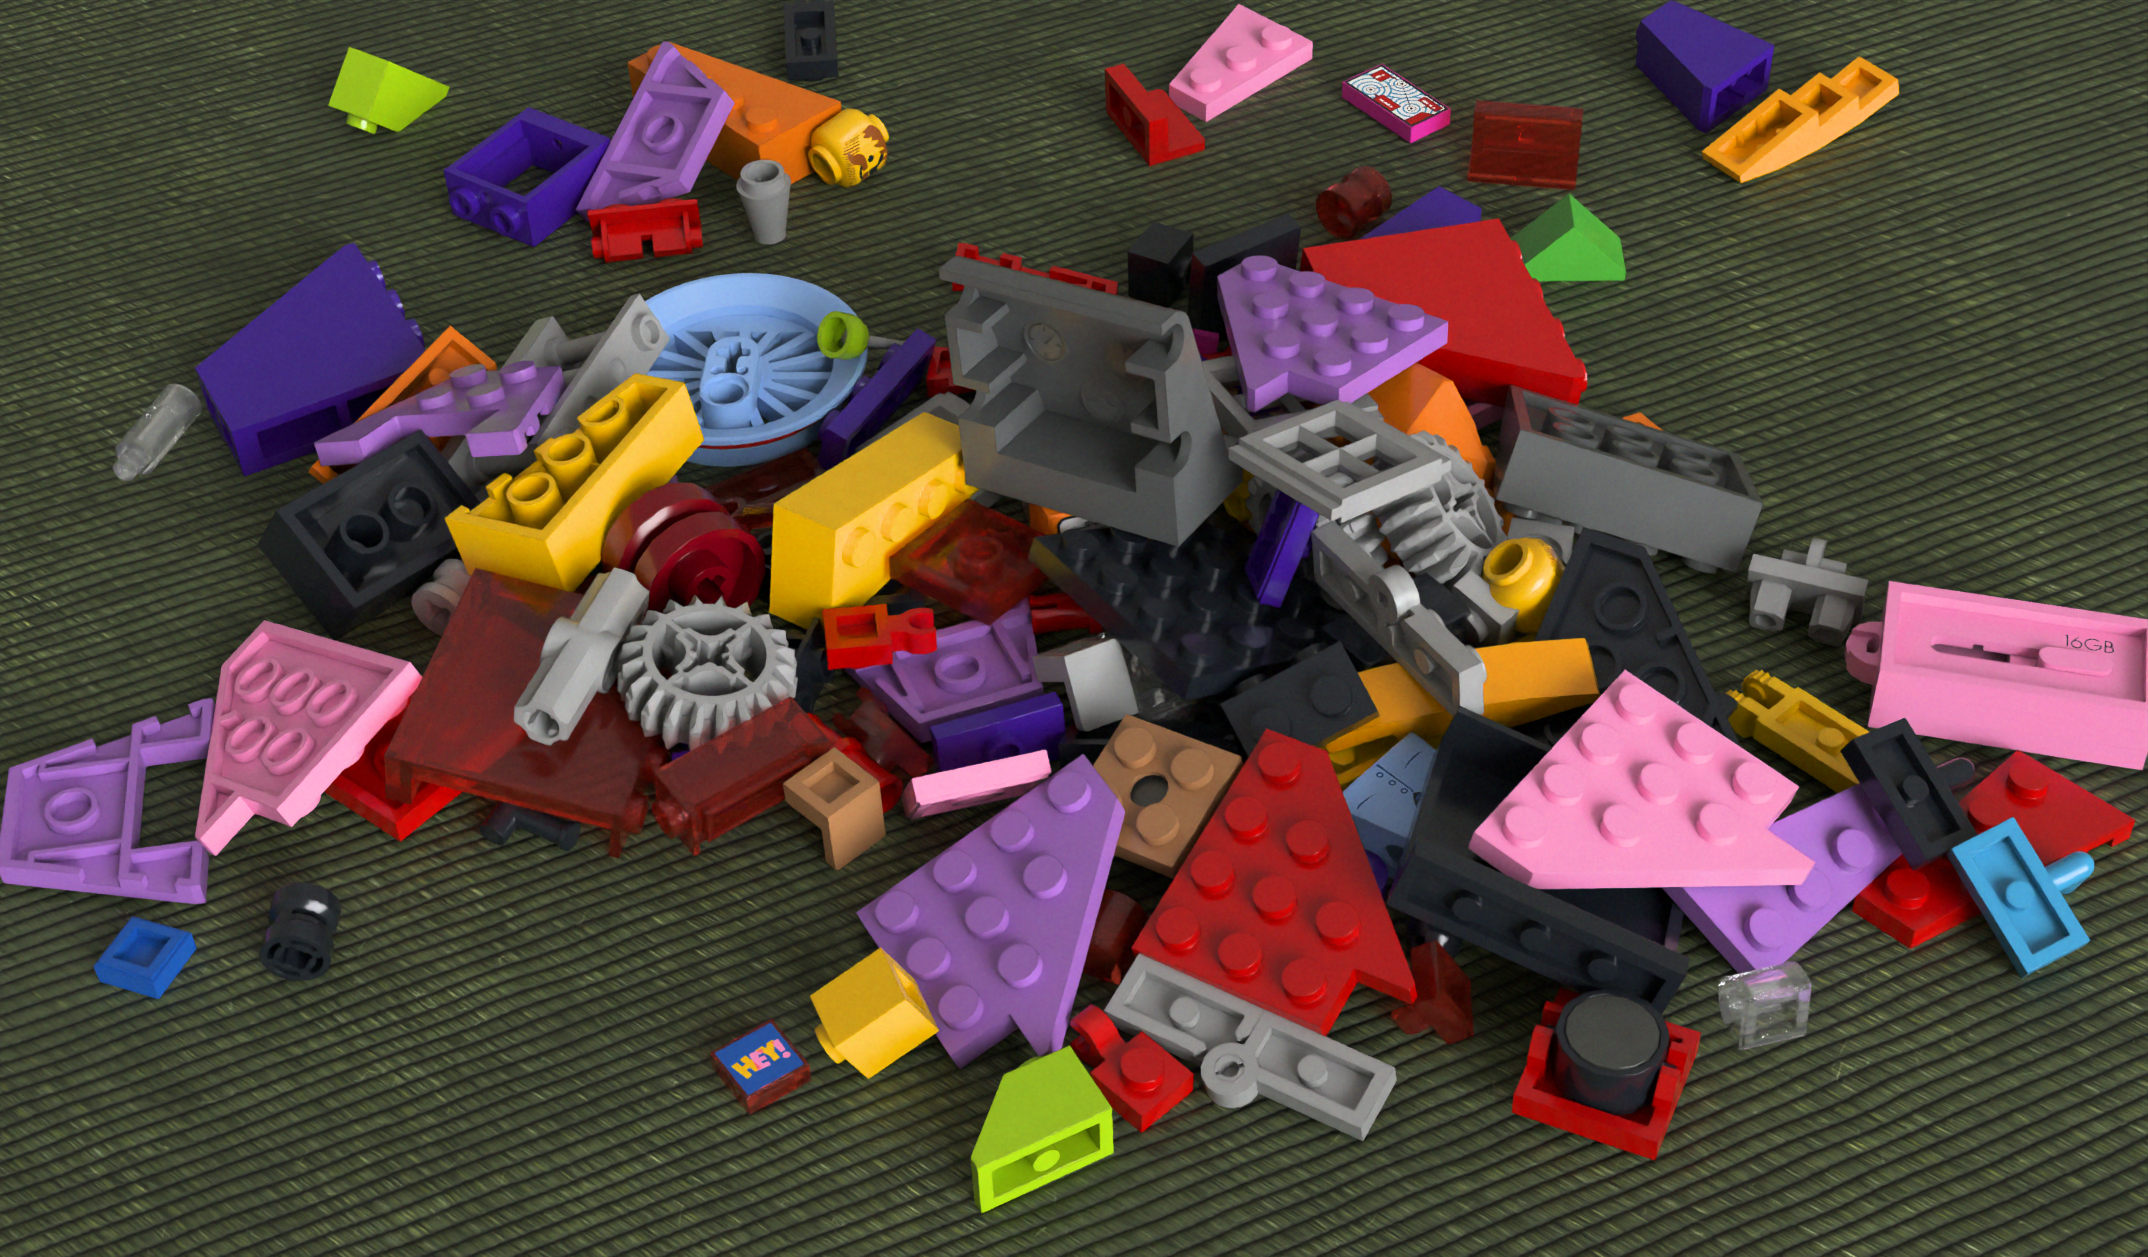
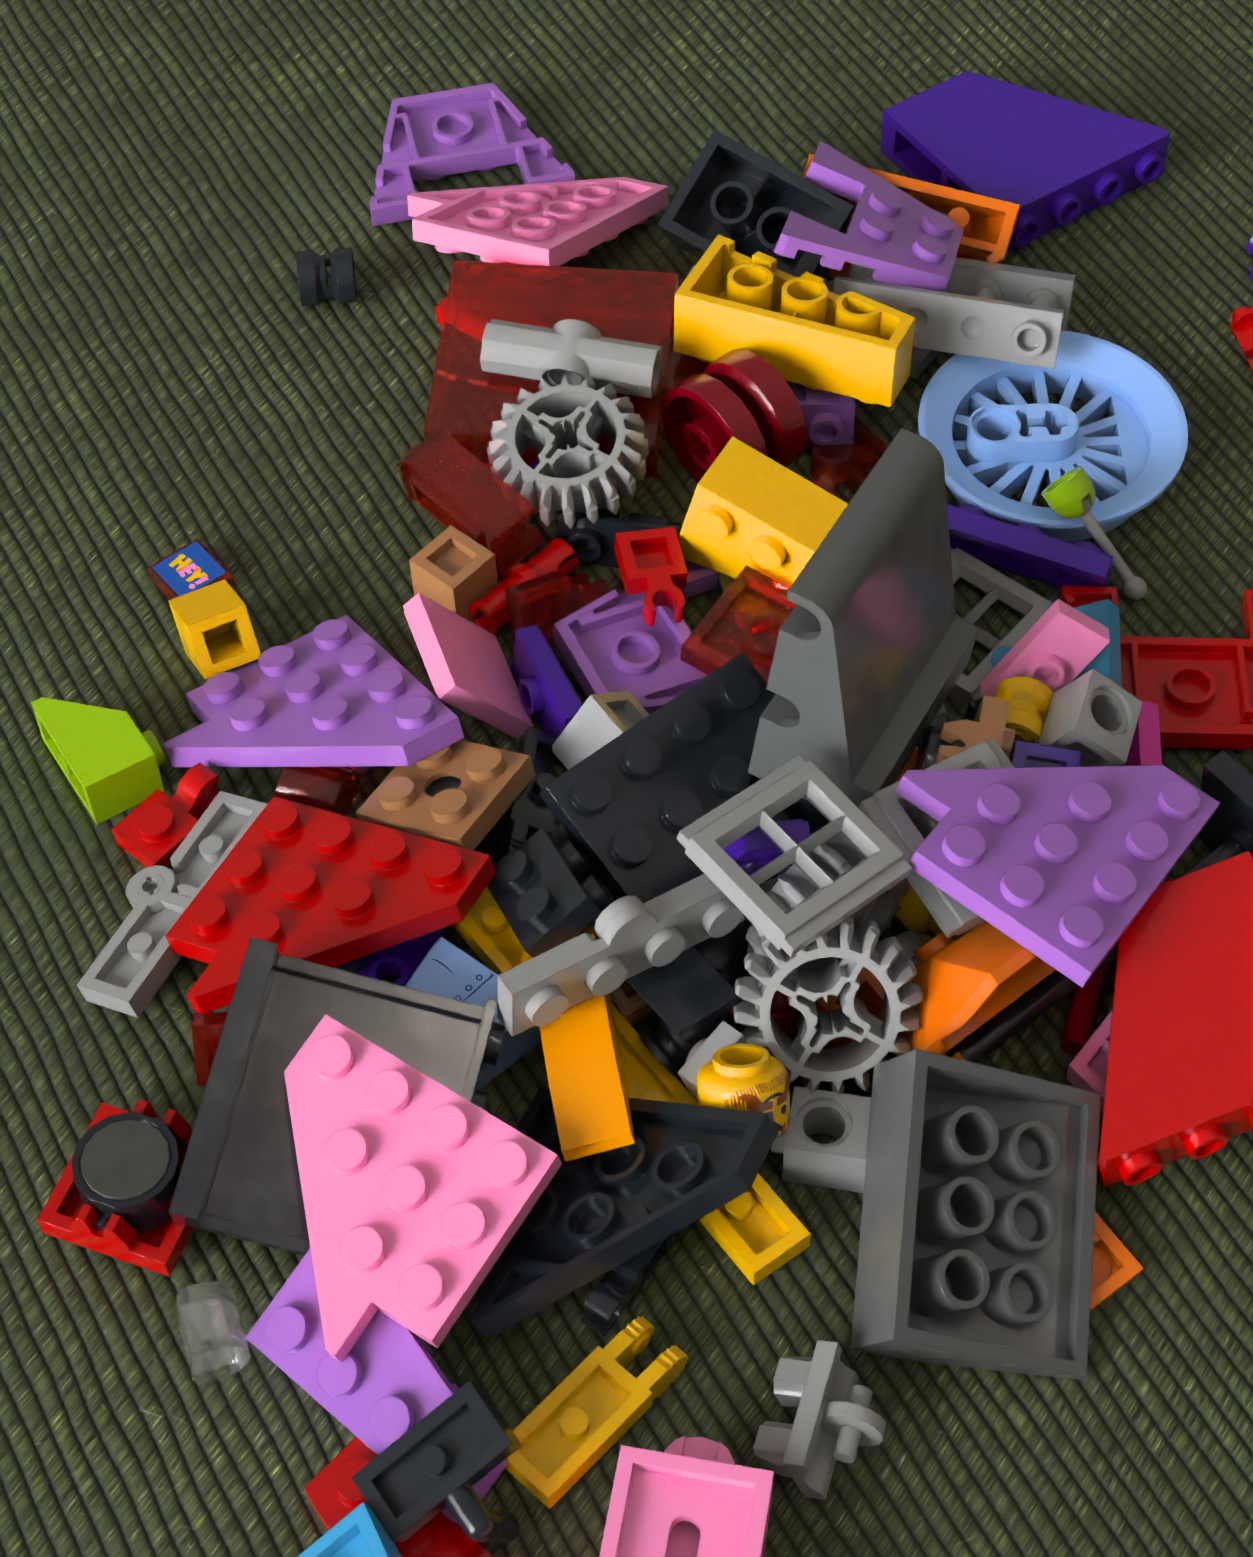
camera: 85 degrees right, 10 degrees up
(145, 957) = (319, 206): blue tile -> none
(156, 432) = (902, 76): clear cylinder -> none

